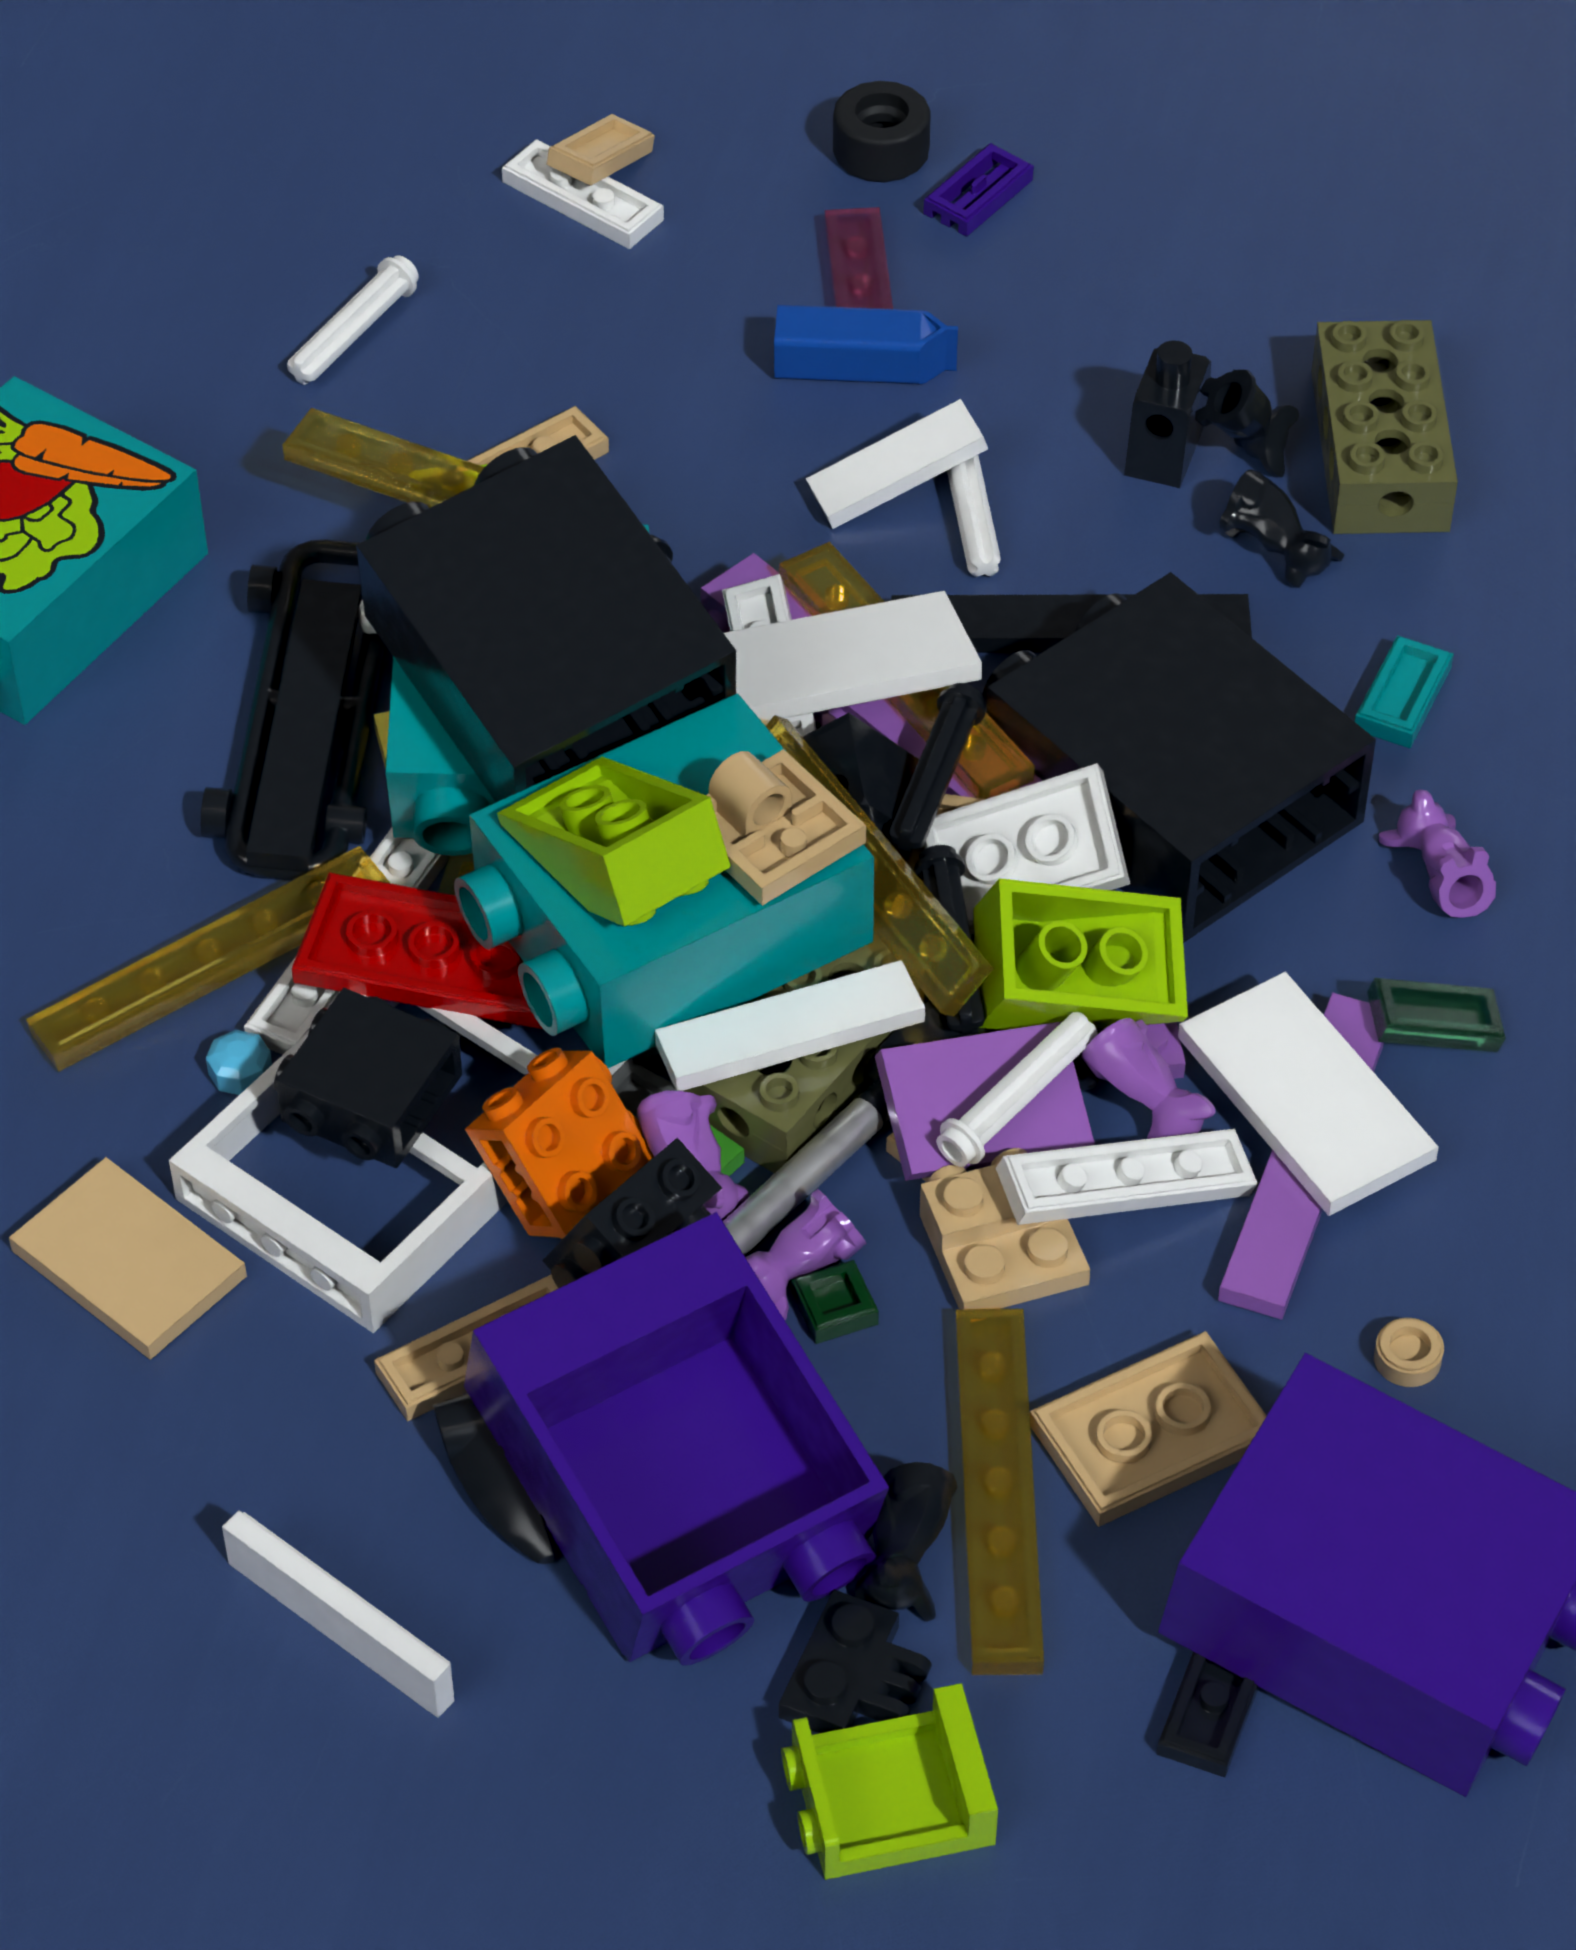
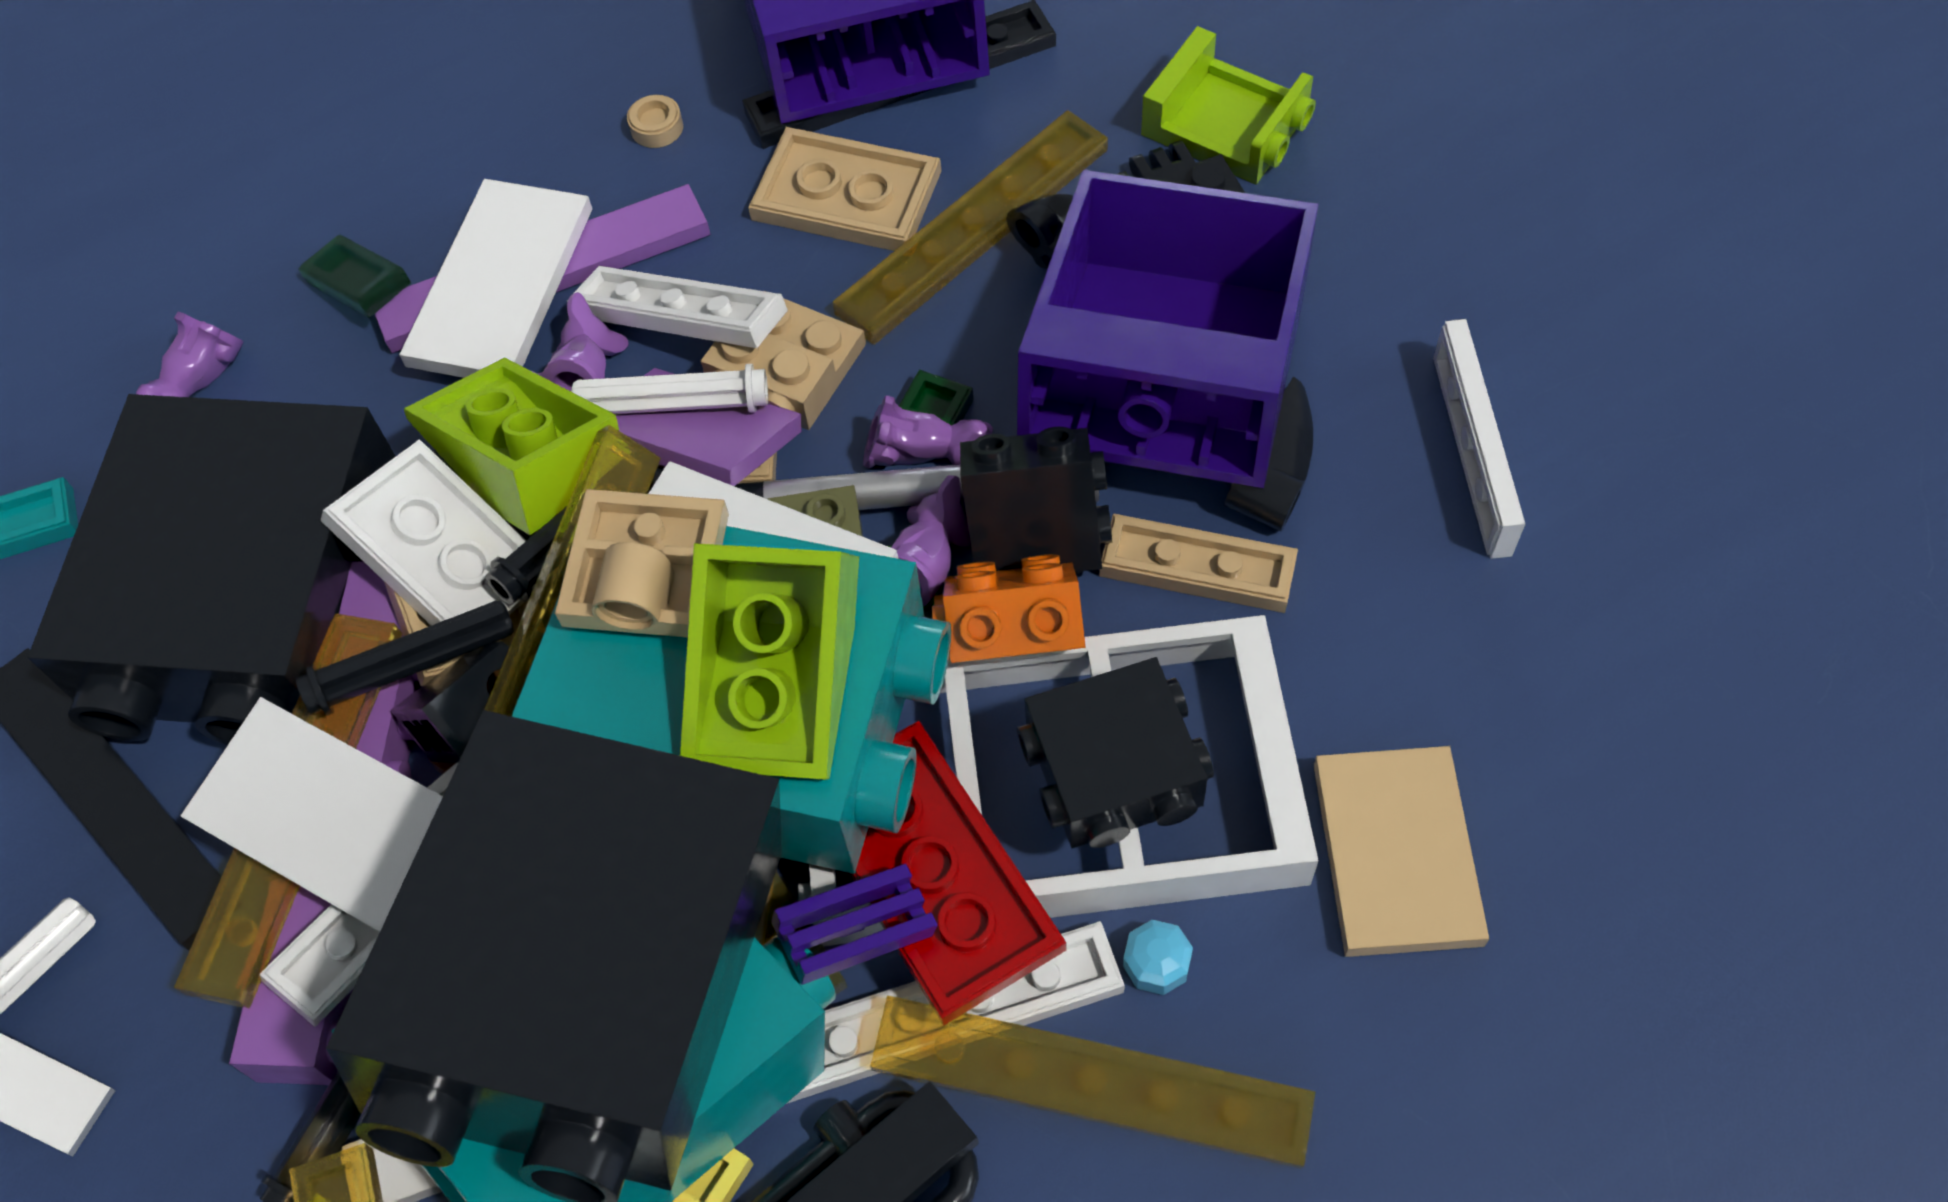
camera: 130 degrees left, 10 degrees up
(446, 803) = (844, 898): none -> dark purple tile

